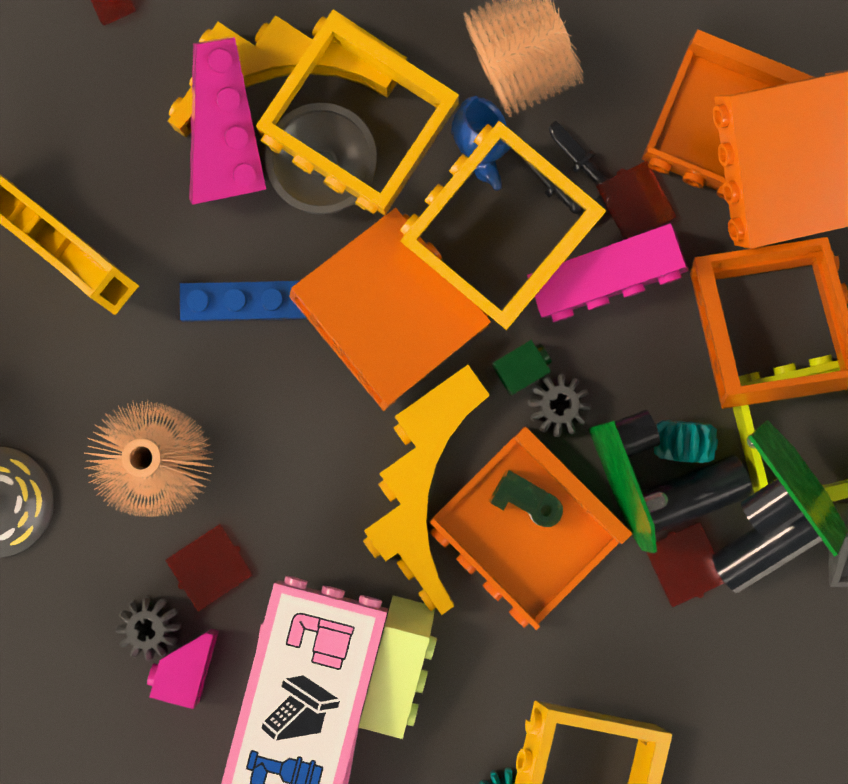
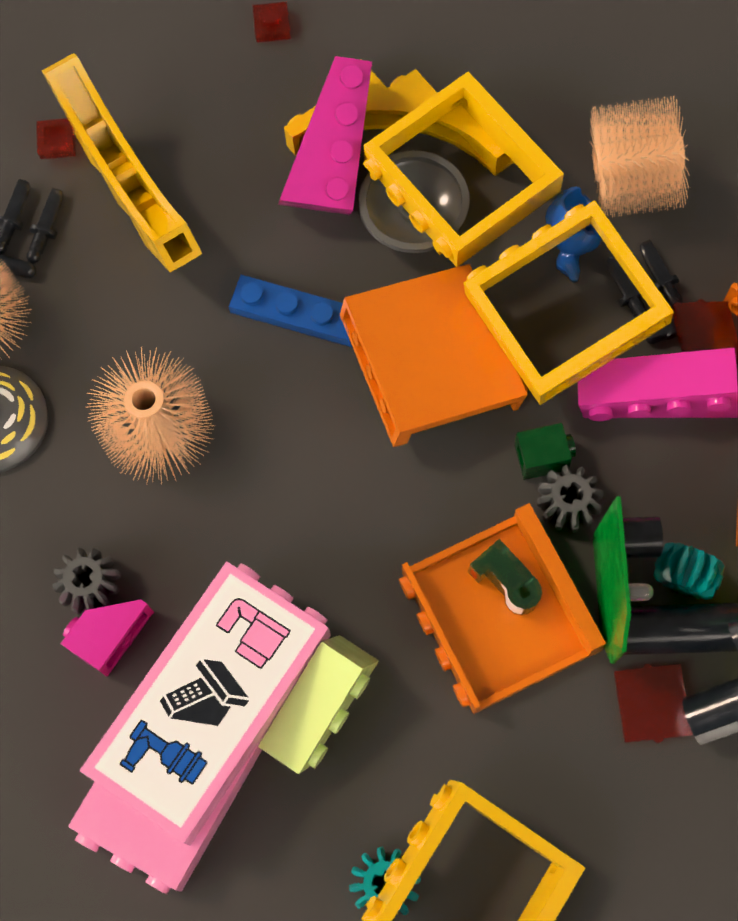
camera: 20 degrees right, 15 degrees down
(209, 567) = (167, 546): clear red piece -> none
(404, 529) = (434, 477): yellow arch -> none

